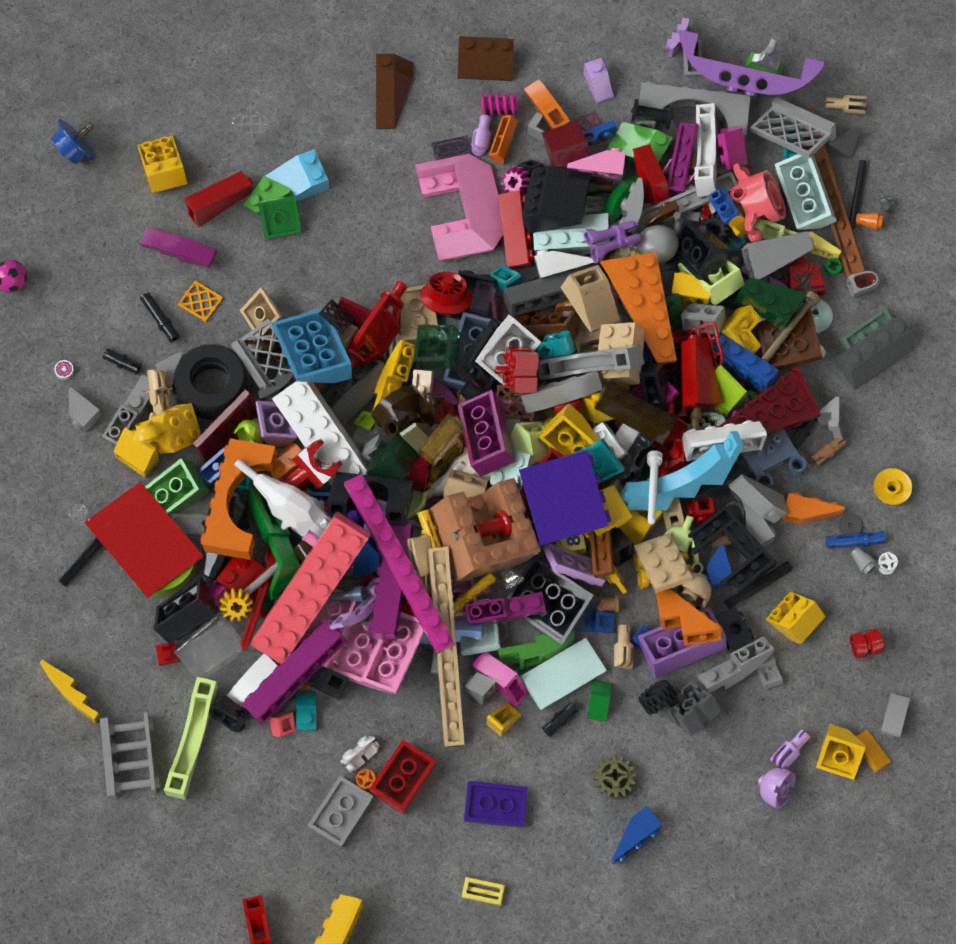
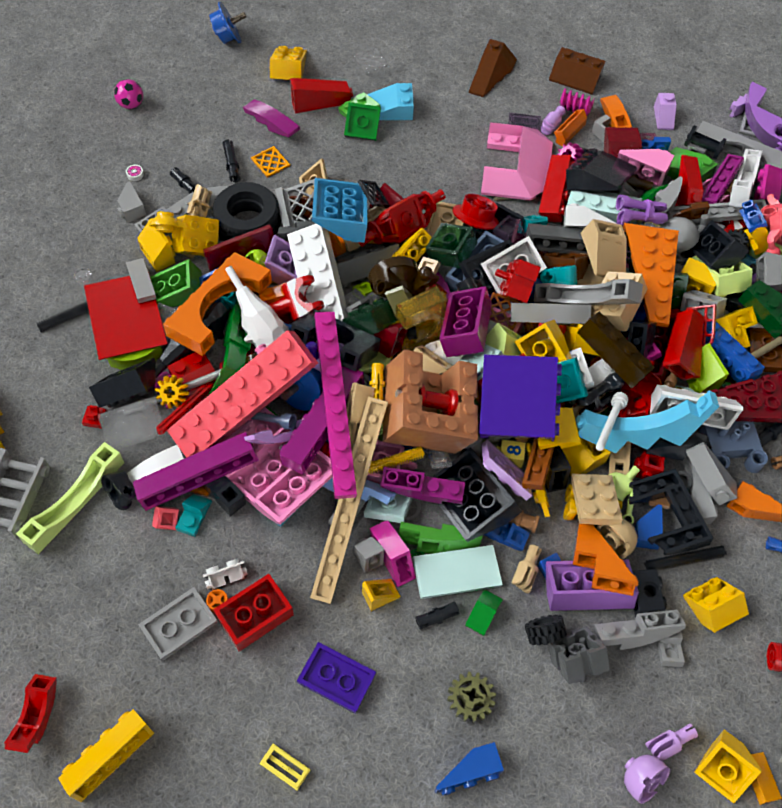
camera: 20 degrees right, 10 degrees down
(140, 496) = (141, 280): none -> light grey tile

